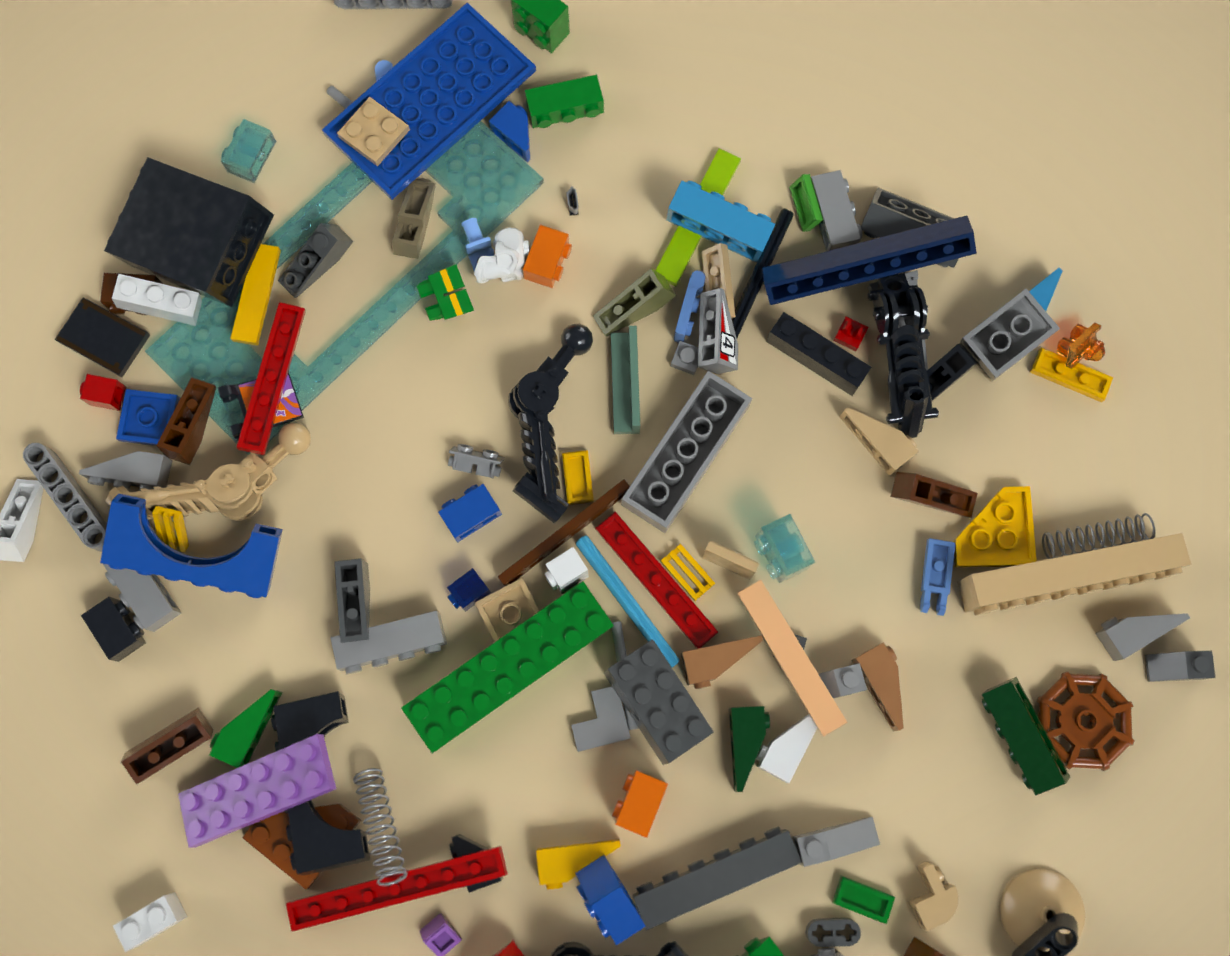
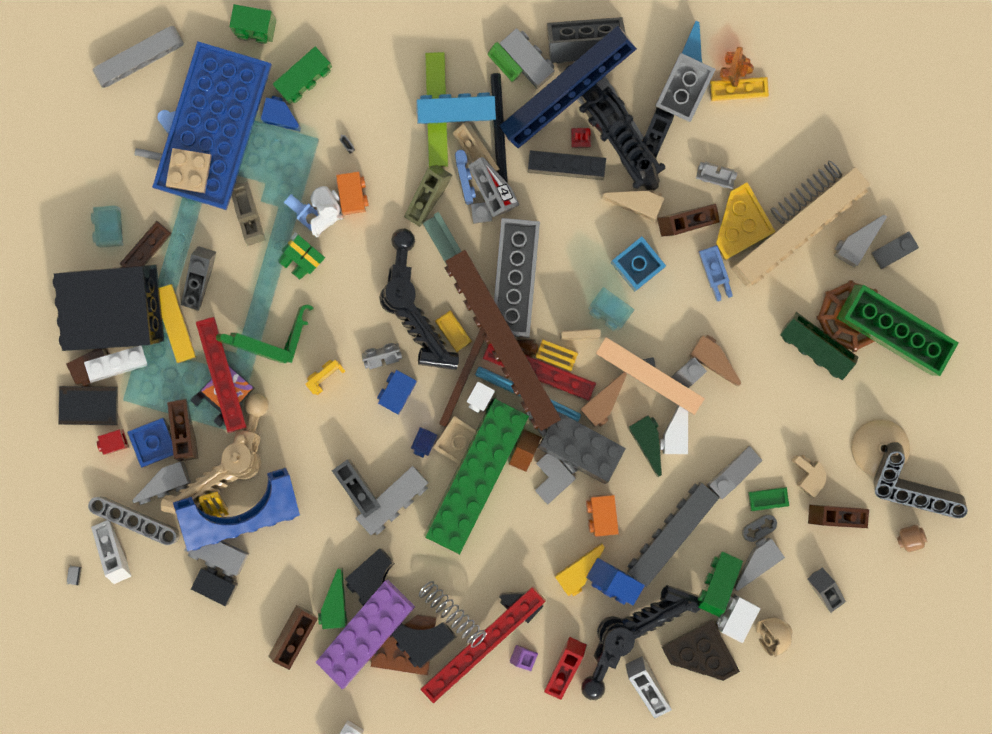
camera: 25 degrees left, 10 degrees up
(285, 194) = (147, 246): none -> reddish brown tile
(342, 378) = (266, 350): none -> green hinge
(382, 444) = (316, 378): none -> yellow piece
(586, 668) = (525, 450): none -> dark orange slope
(631, 517) = (502, 339): none -> reddish brown brick
(656, 542) = (528, 346): none -> reddish brown cone
(846, 513) = (638, 264): none -> dark azure brick
(986, 451) = (708, 173): none -> light grey hinge
(1140, 769) = (897, 330): none -> green brick

